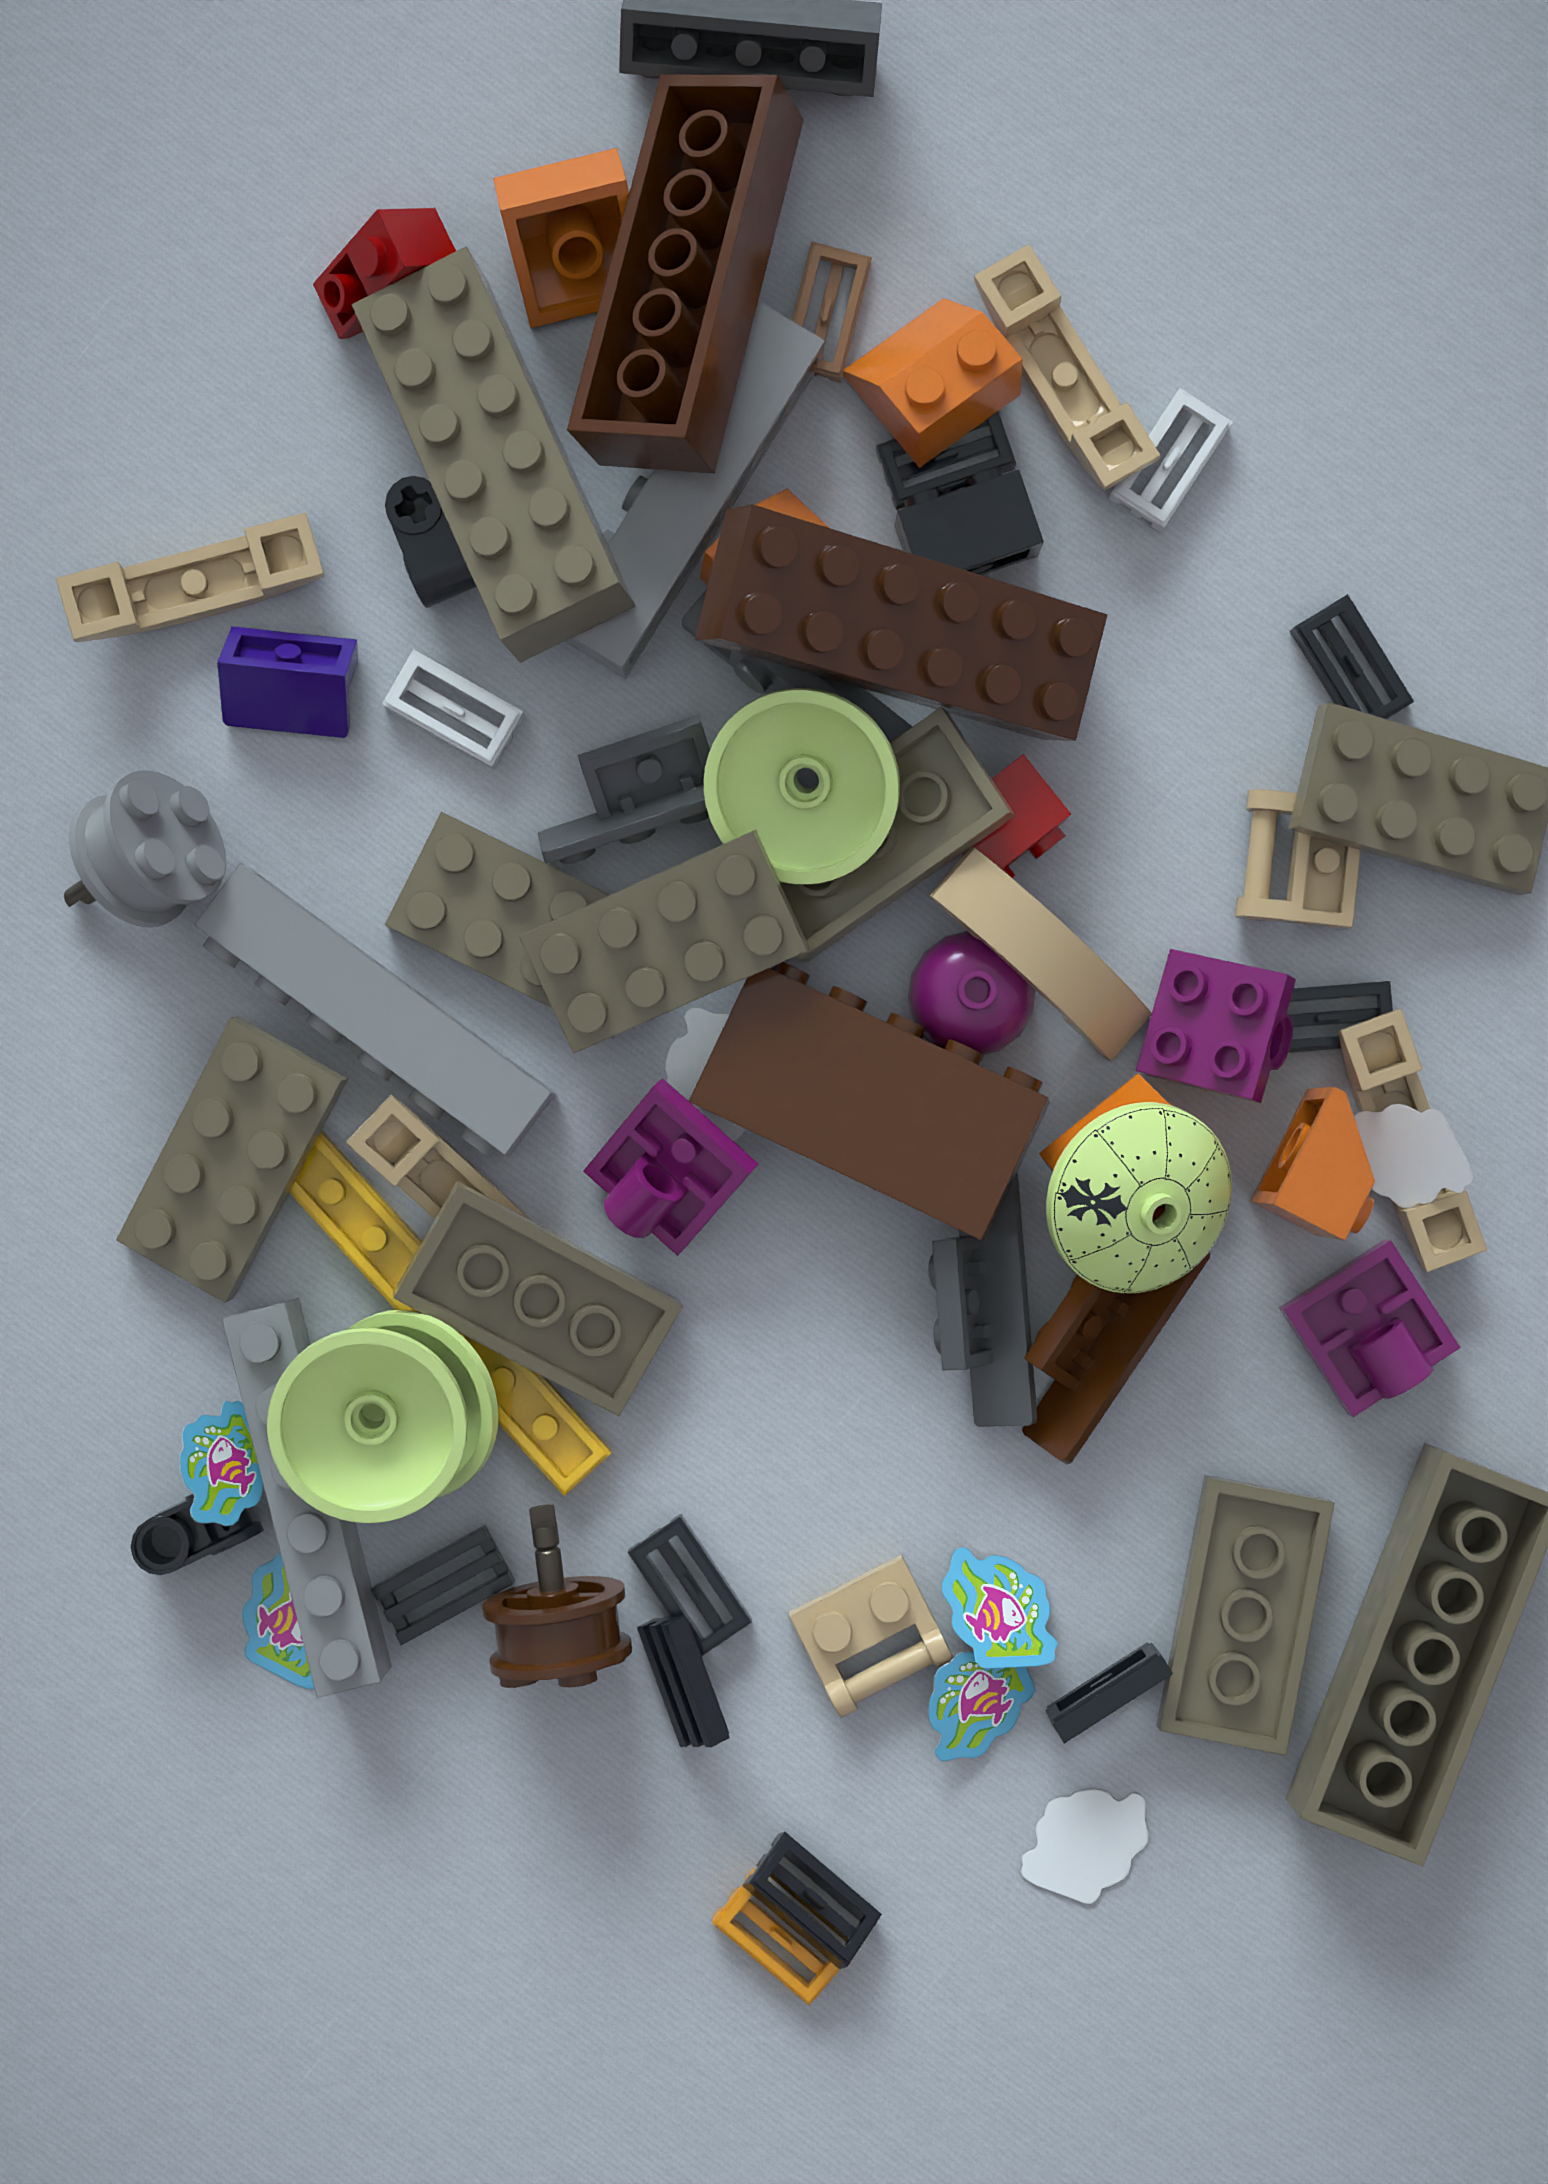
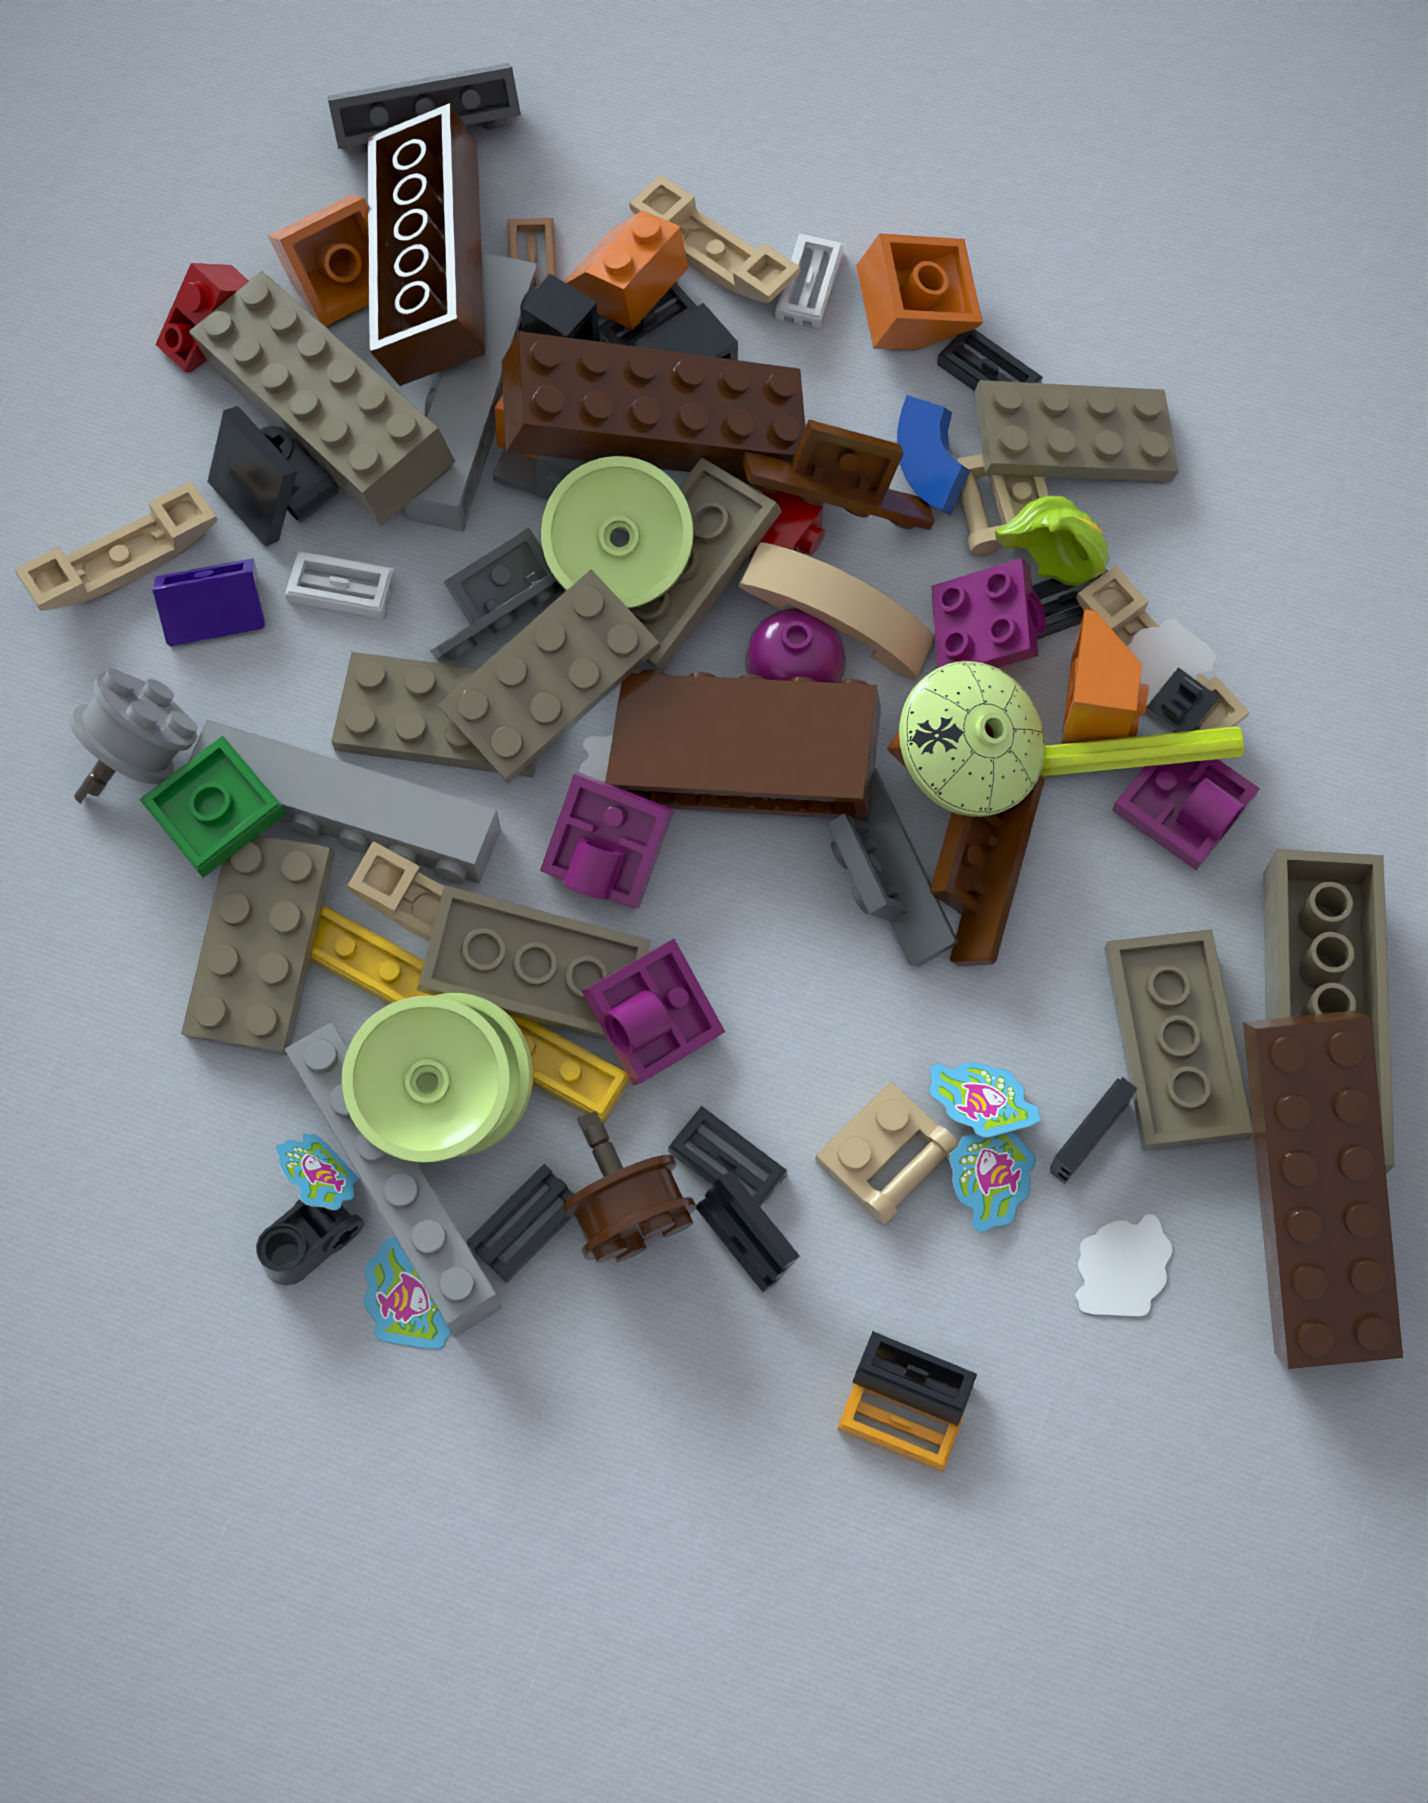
camera: 15 degrees left, 20 degrees down
(215, 987) = (213, 806): none -> green tile
(379, 538) = (251, 475): none -> black tile
(658, 1399) = (653, 1012): none -> magenta plate
(823, 452) = (559, 311): none -> black brick
(1107, 783) = (844, 472): none -> reddish brown bracket
(1228, 769) = (927, 456): none -> blue tile
(1300, 533) = (917, 290): none -> orange slope
(1332, 1873) = (1323, 1189): none -> reddish brown brick
(1343, 1262) = (1143, 751): none -> neon yellow axle
(1344, 954) = (1058, 539): none -> lime hair
(1411, 1221) = (1183, 703): none -> black tile

